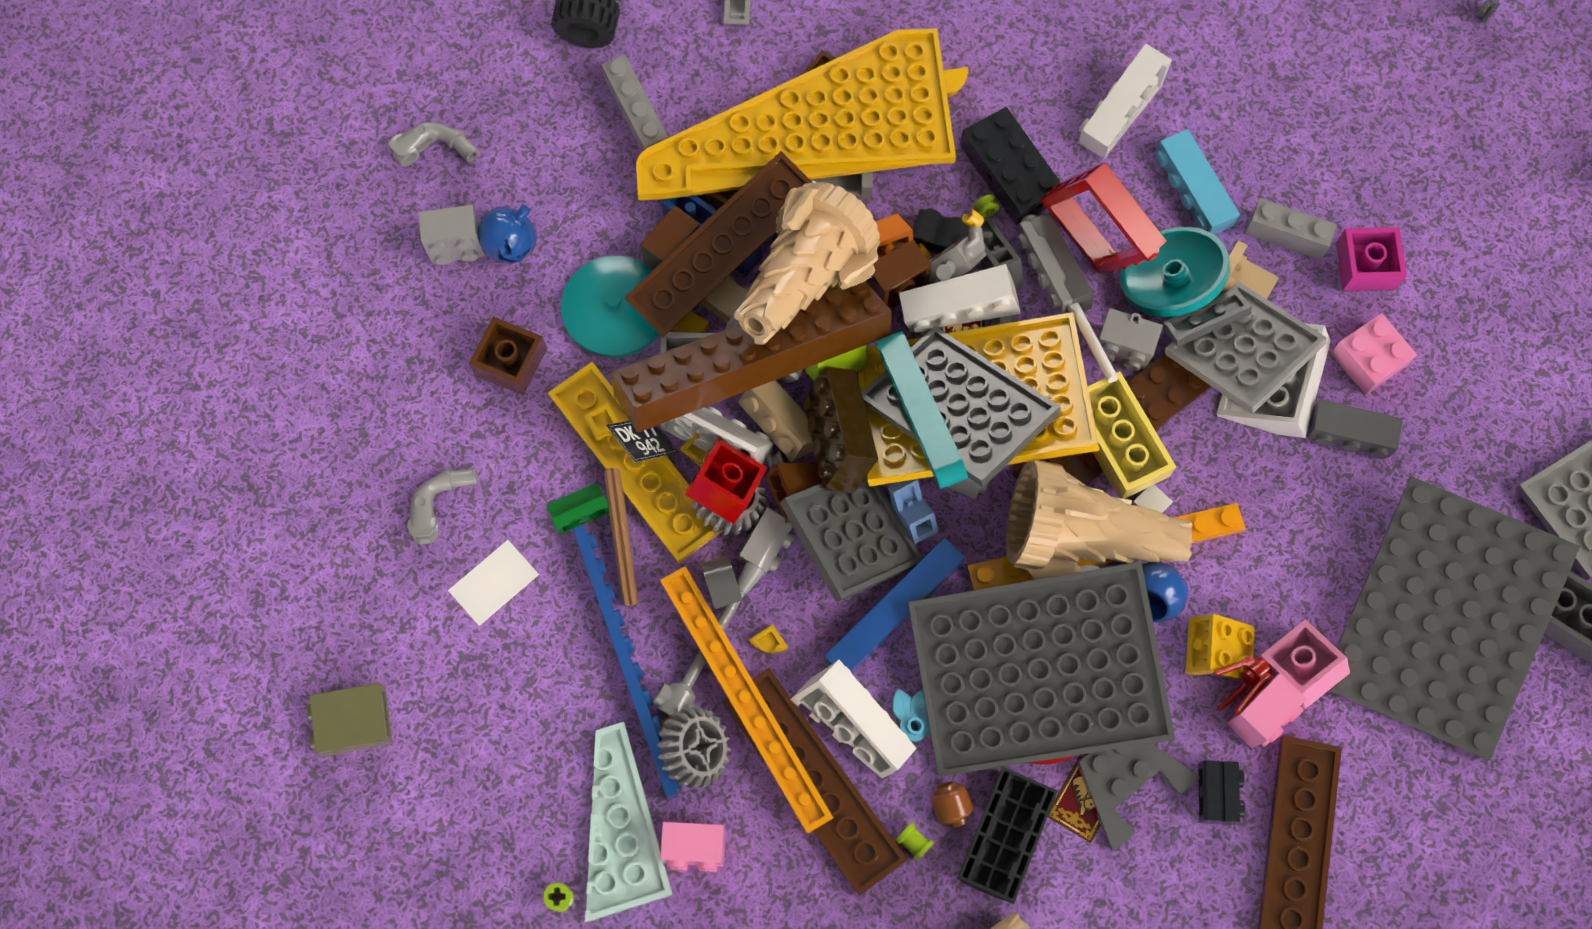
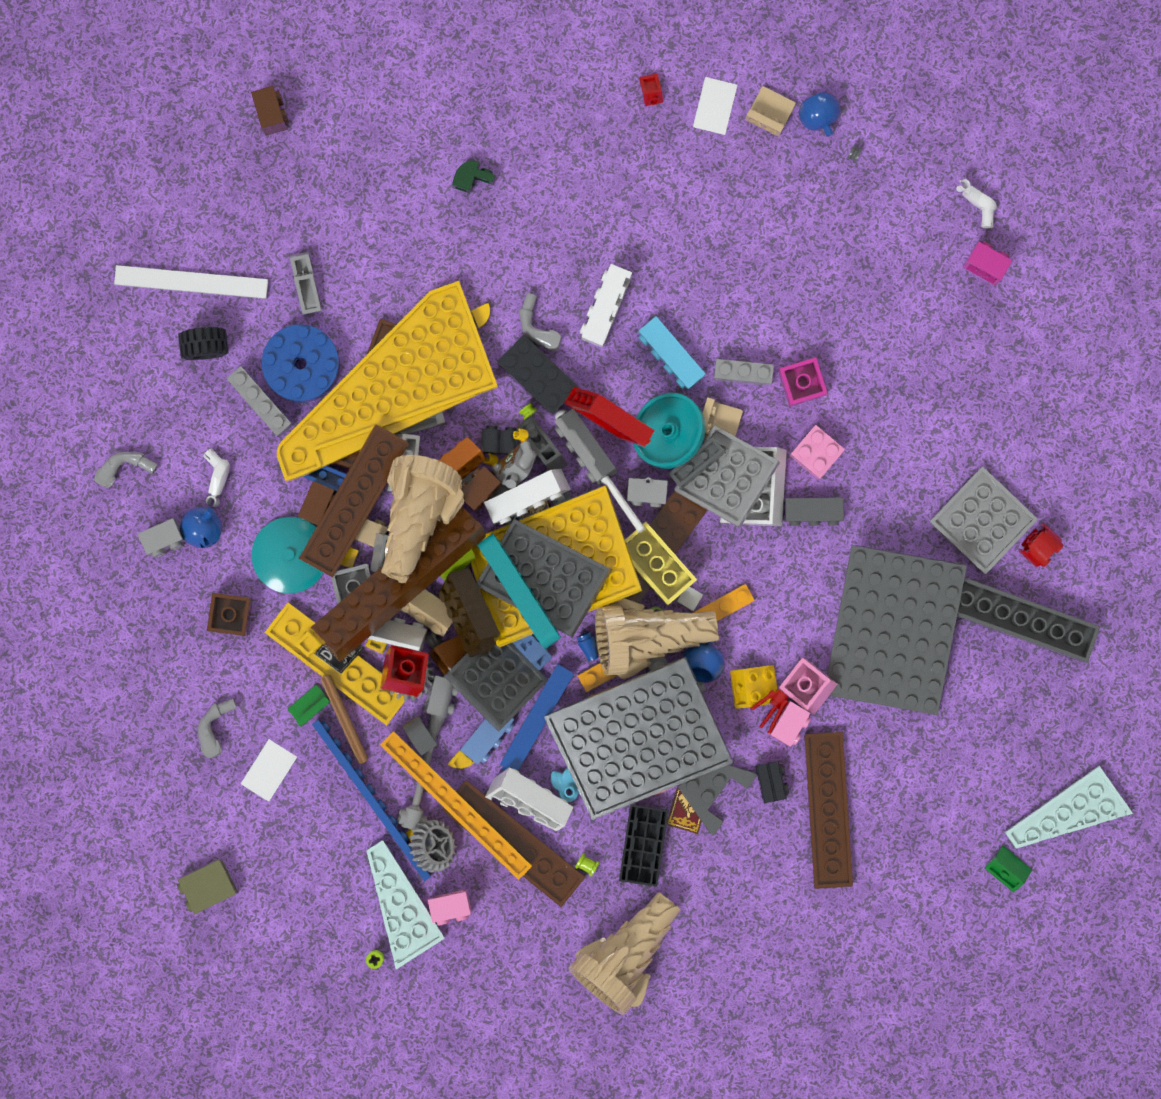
camera: 15 degrees left, 15 degrees up
(551, 184) = (219, 476): none -> white arm
(702, 73) = (297, 344): none -> blue brick
(814, 616) = (483, 740): none -> medium blue brick
(951, 804) = (604, 835): dark orange head -> none
(993, 527) = (588, 645): none -> blue cone
(1036, 127) = (547, 339): none -> light grey piece

